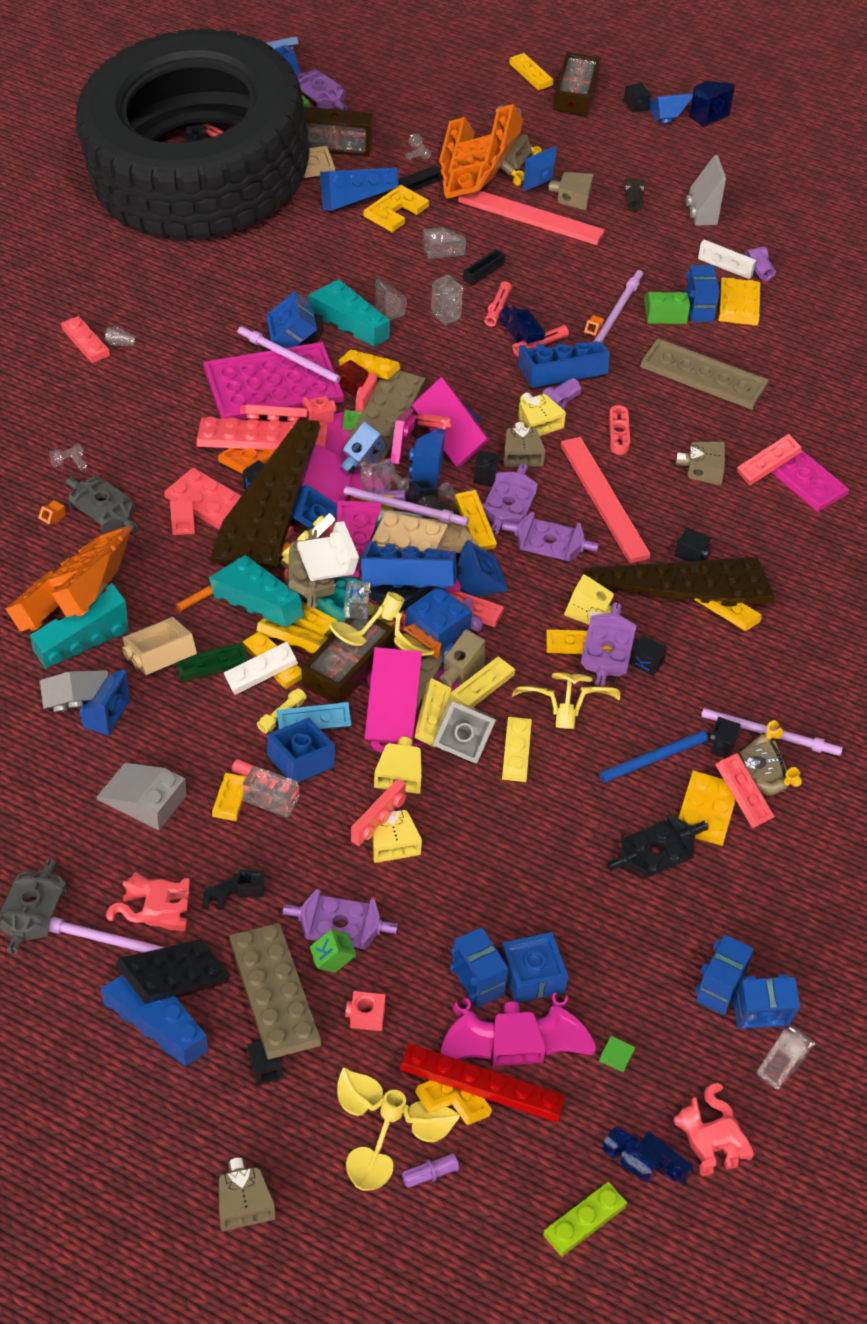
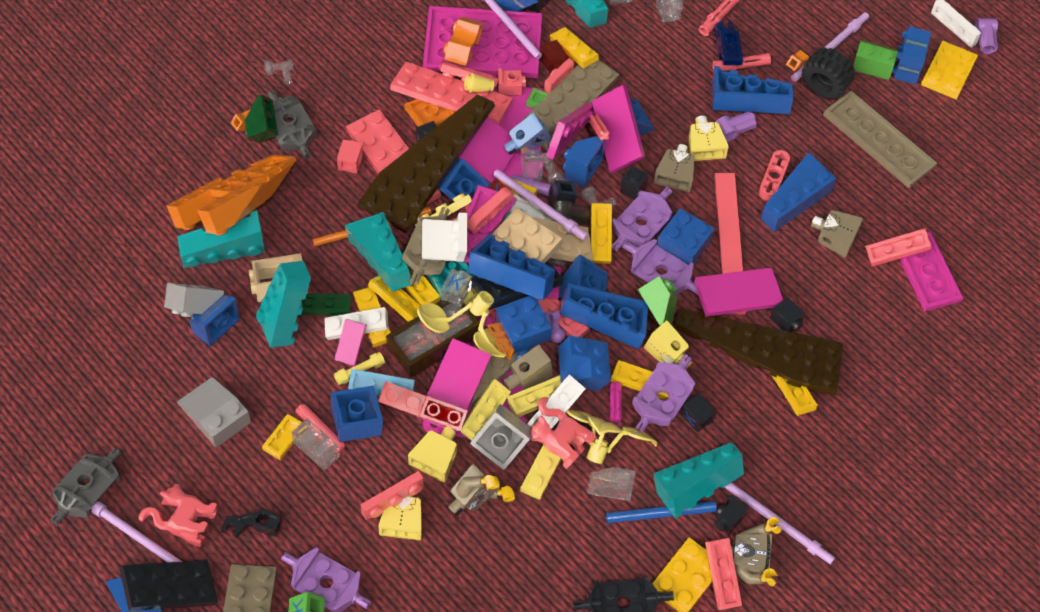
camera: 20 degrees right, 10 degrees up
(73, 506) = (261, 120): none -> dark green slope
(180, 661) = (283, 303): none -> teal wedge
(256, 381) = (465, 36): none -> orange brick
(262, 685) = (350, 342): none -> tile
(288, 416) = (477, 83): none -> light yellow cone
(362, 516) = (489, 210): none -> coral beam
(370, 723) = (422, 406): none -> slope
(463, 781) = (475, 489): none -> dark tan torso
(506, 685) = (561, 399): none -> white plate
(515, 639) = (585, 362): none -> blue slope
(517, 587) = (606, 313): none -> blue wedge
(527, 713) = (567, 432): none -> coral animal
(559, 666) = (615, 402): none -> dark pink axle
(561, 502) = (686, 237): none -> blue brick
(564, 558) = (660, 298): none -> slope
(594, 742) = (612, 483): none -> clear slope
(635, 314) = (828, 73): none -> black tyre
(635, 537) = (738, 291): none -> dark pink tile
(651, 437) = (799, 191): none -> blue wedge
(676, 712) = (698, 477): none -> teal wedge

